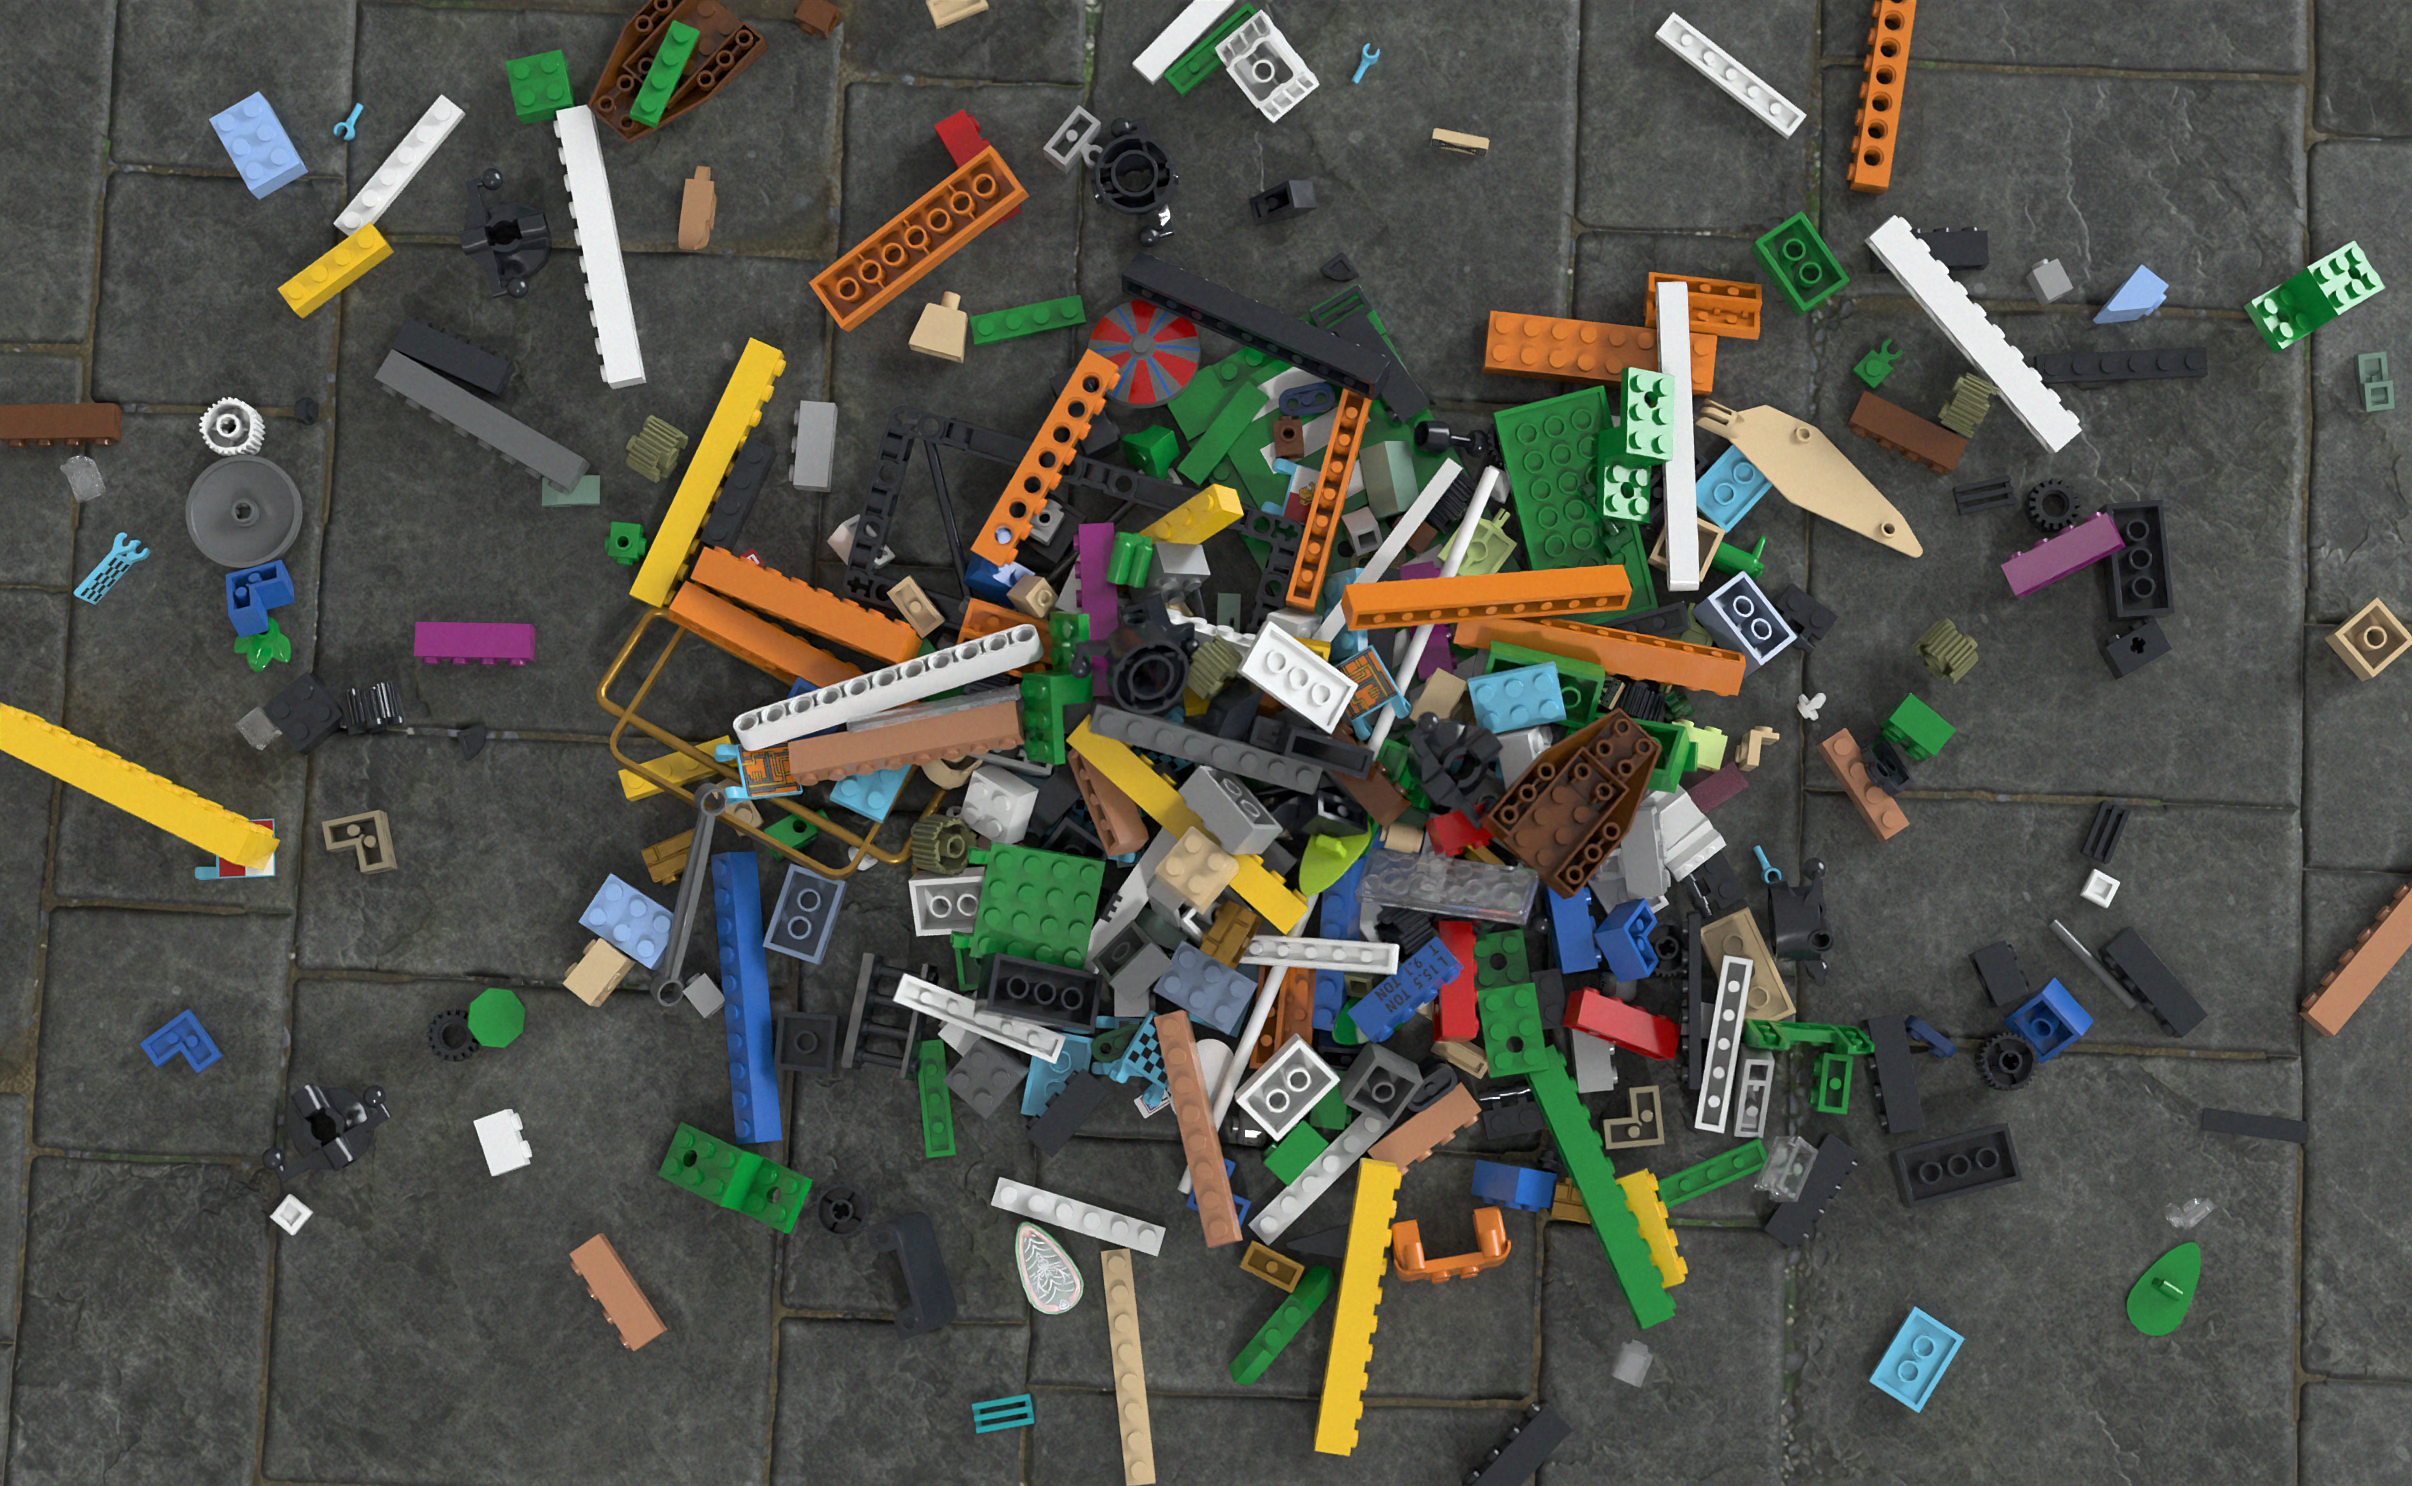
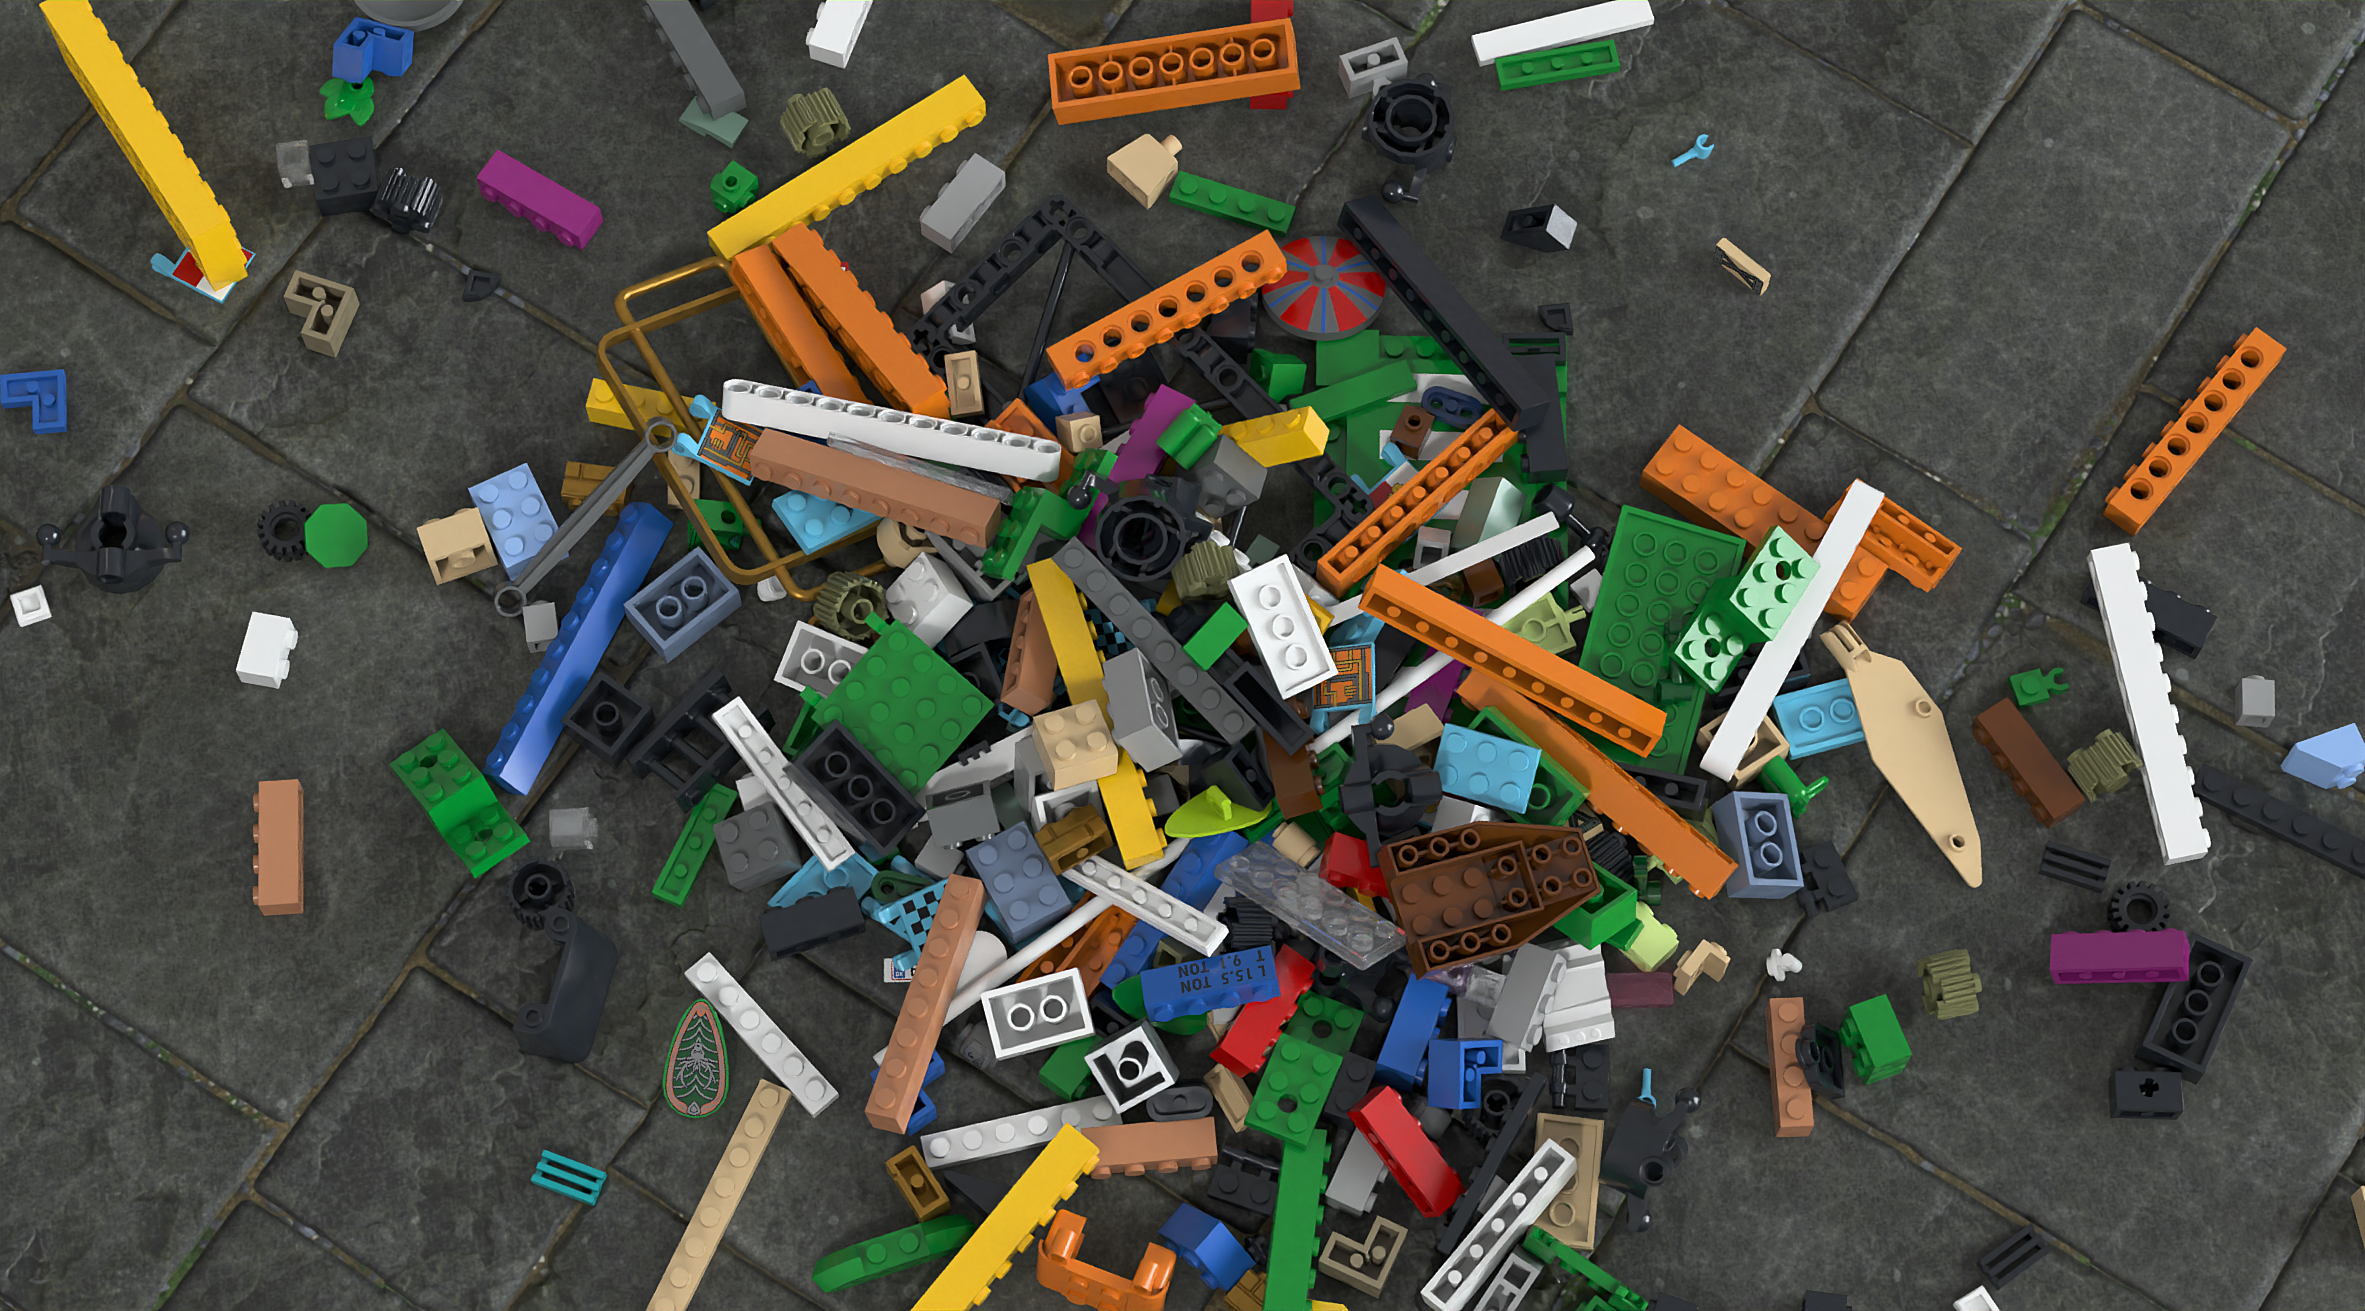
camera: 30 degrees right, 15 degrees down
(738, 495) = (866, 204): black brick -> none
(834, 1143) = (572, 829): none -> clear brick
(1046, 531) = (1132, 389): light grey brick -> none
(1253, 720) = (1214, 637): none -> green tile
(1266, 66) = (1596, 102): white slope -> none
(1294, 1152) = (1008, 1087): green brick -> none
(1730, 75) = (2043, 348): white plate -> none
(1799, 264) = (2010, 549): green brick -> none

